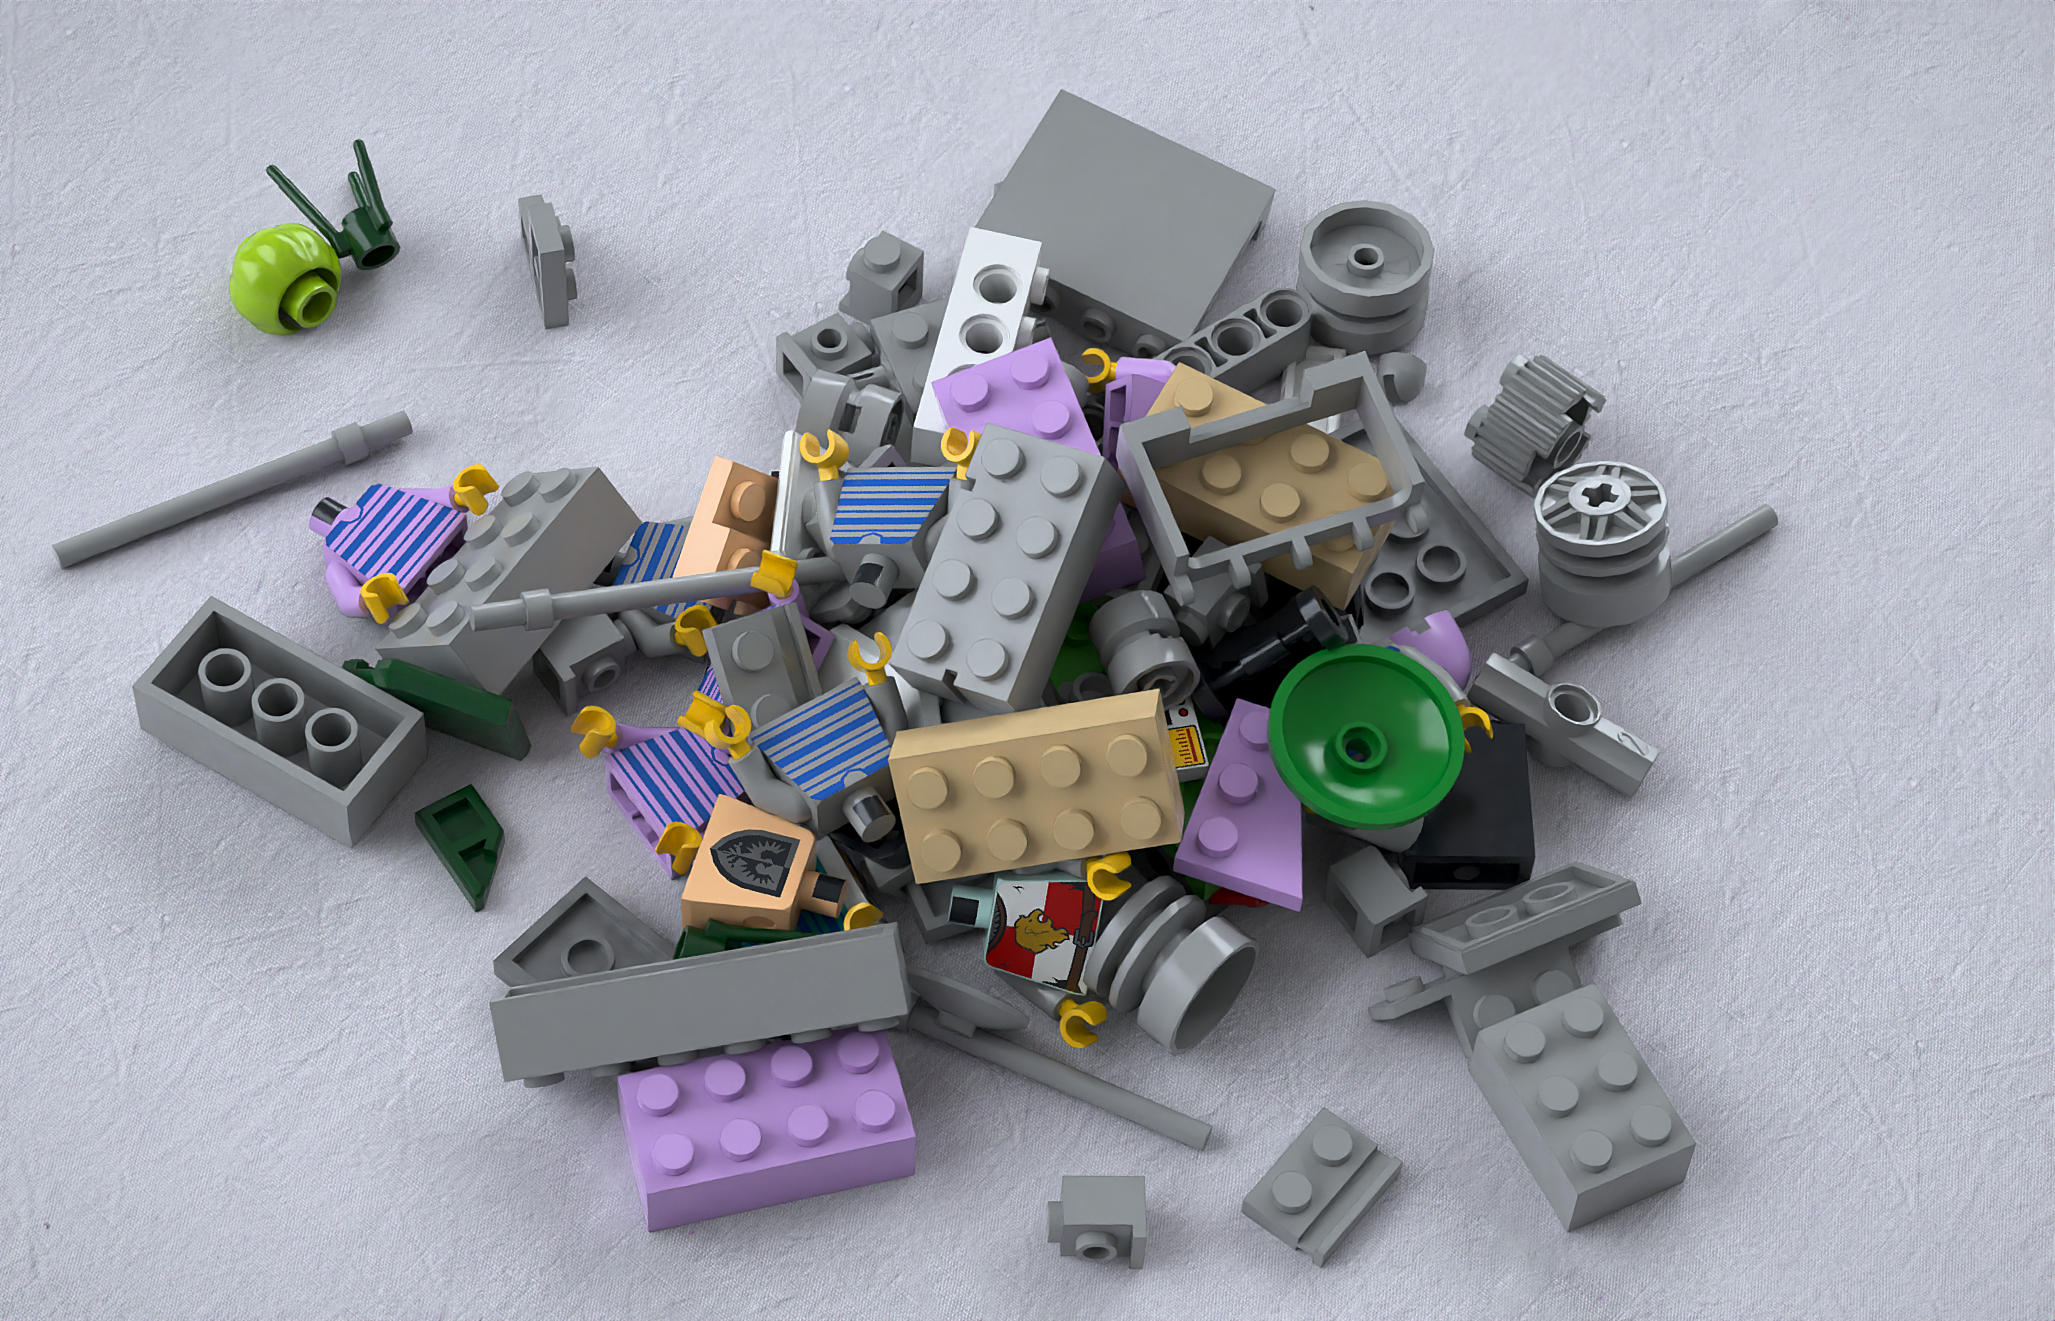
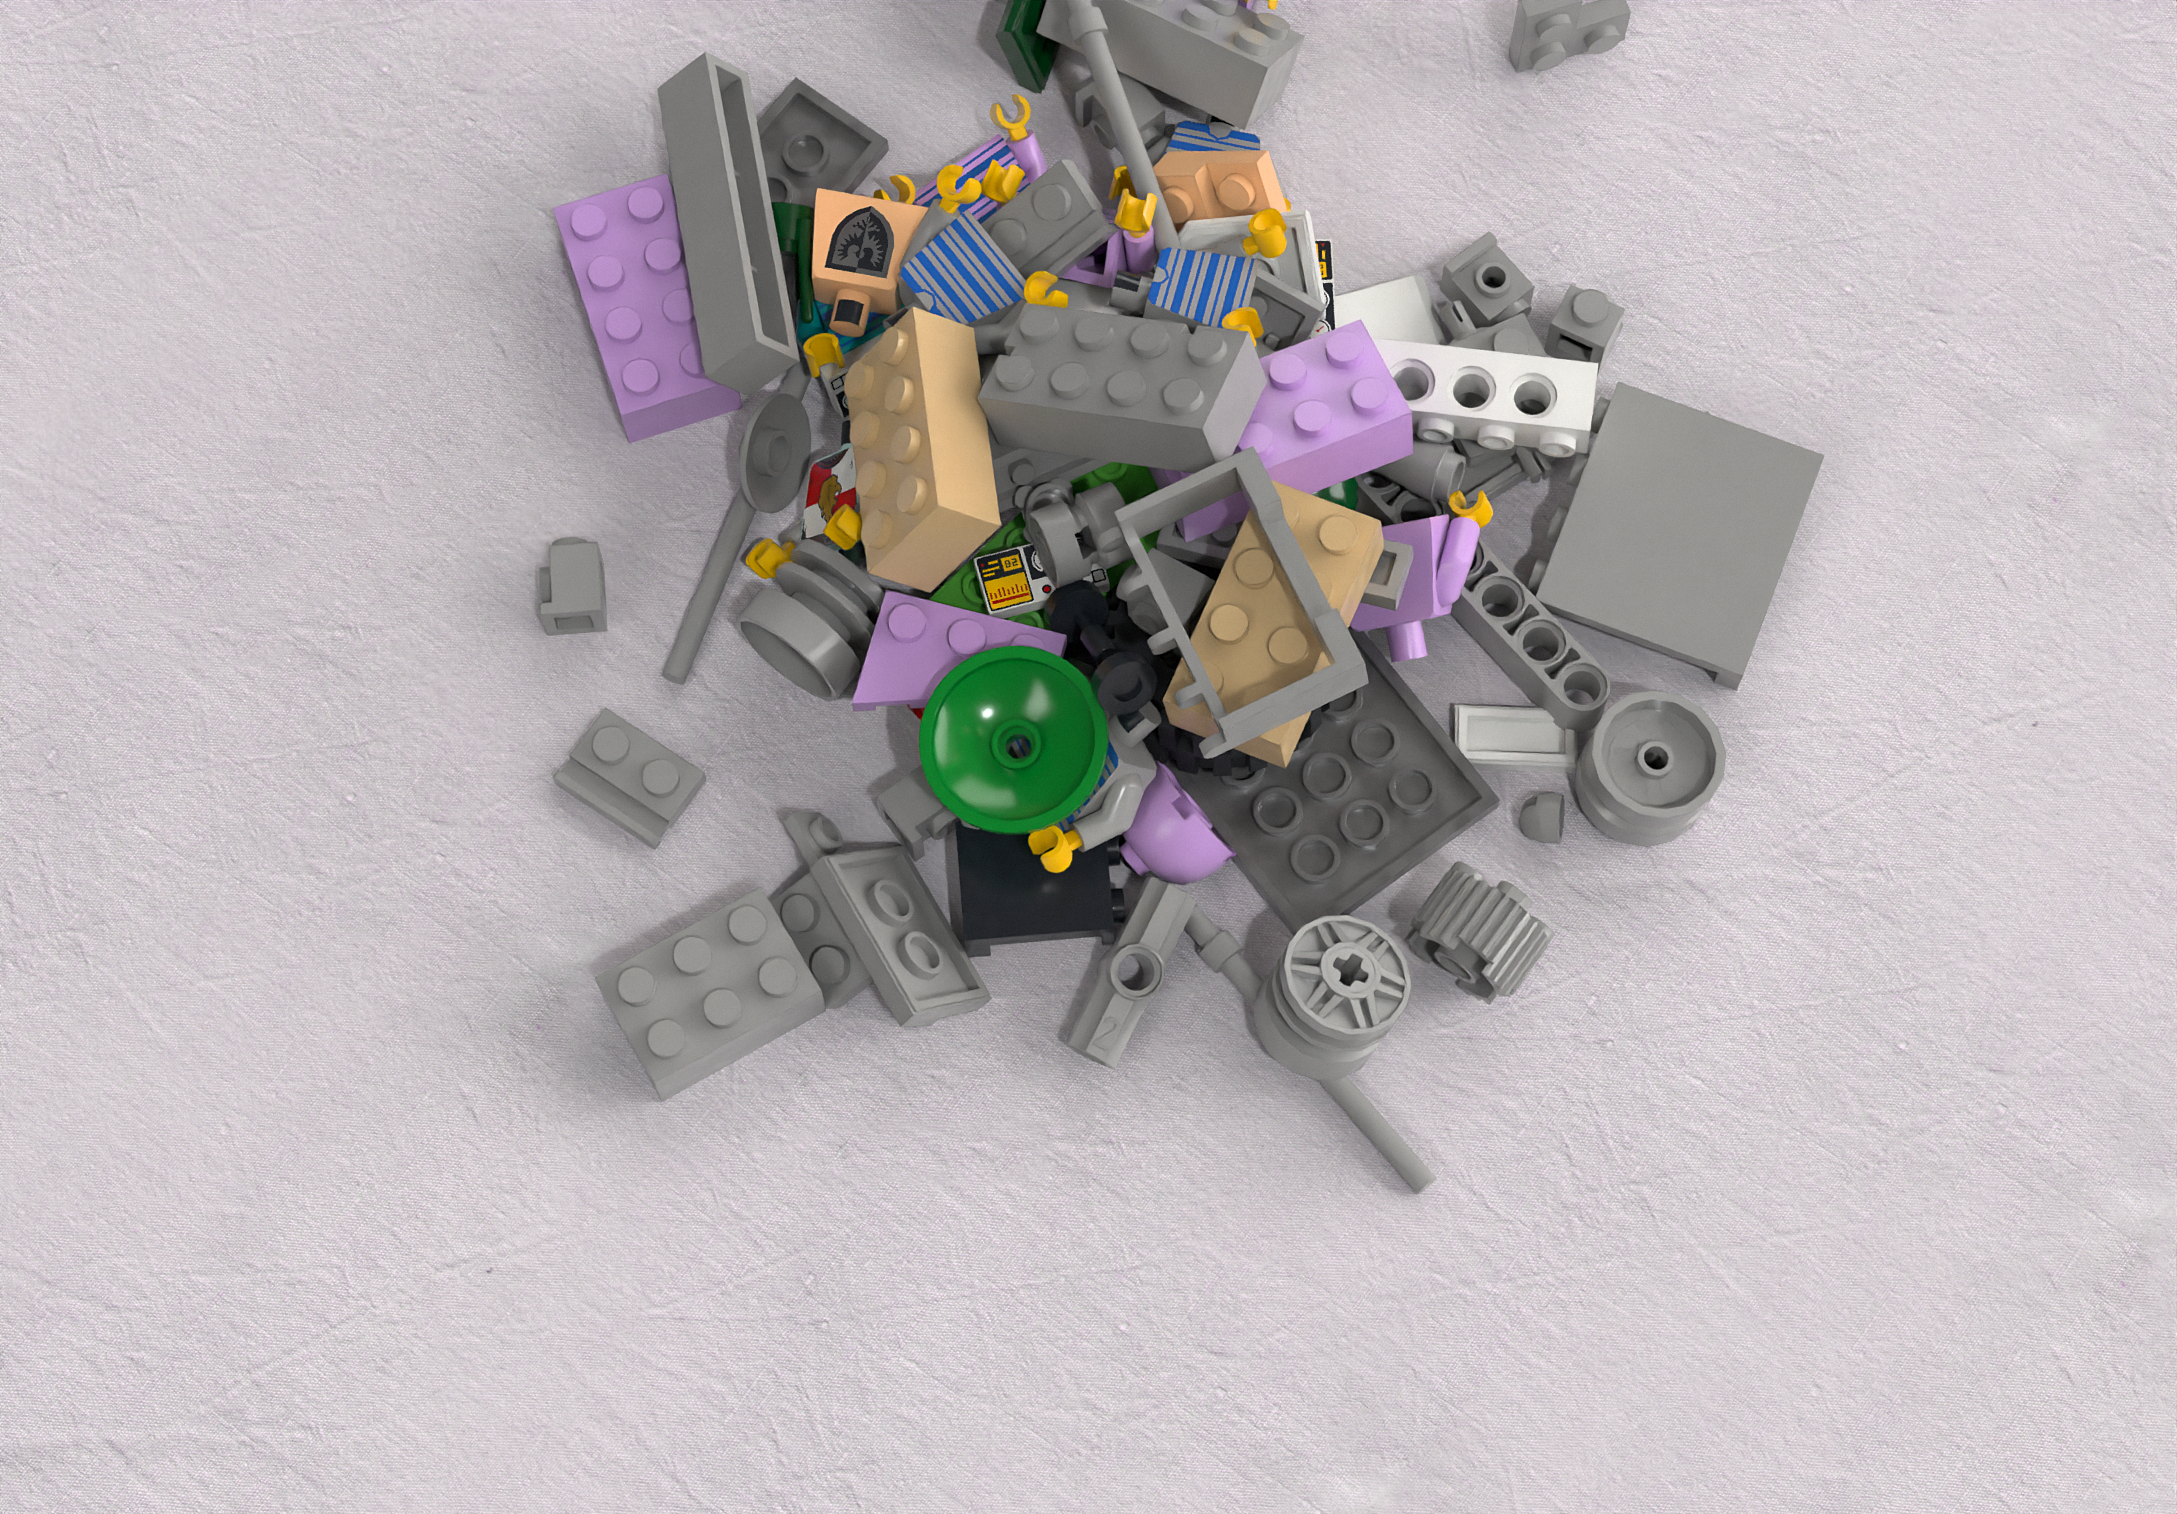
camera: 90 degrees right, 15 degrees up
(465, 841) = (929, 51): dark green tile -> none
(832, 403) = (1401, 294): light grey wheel -> none

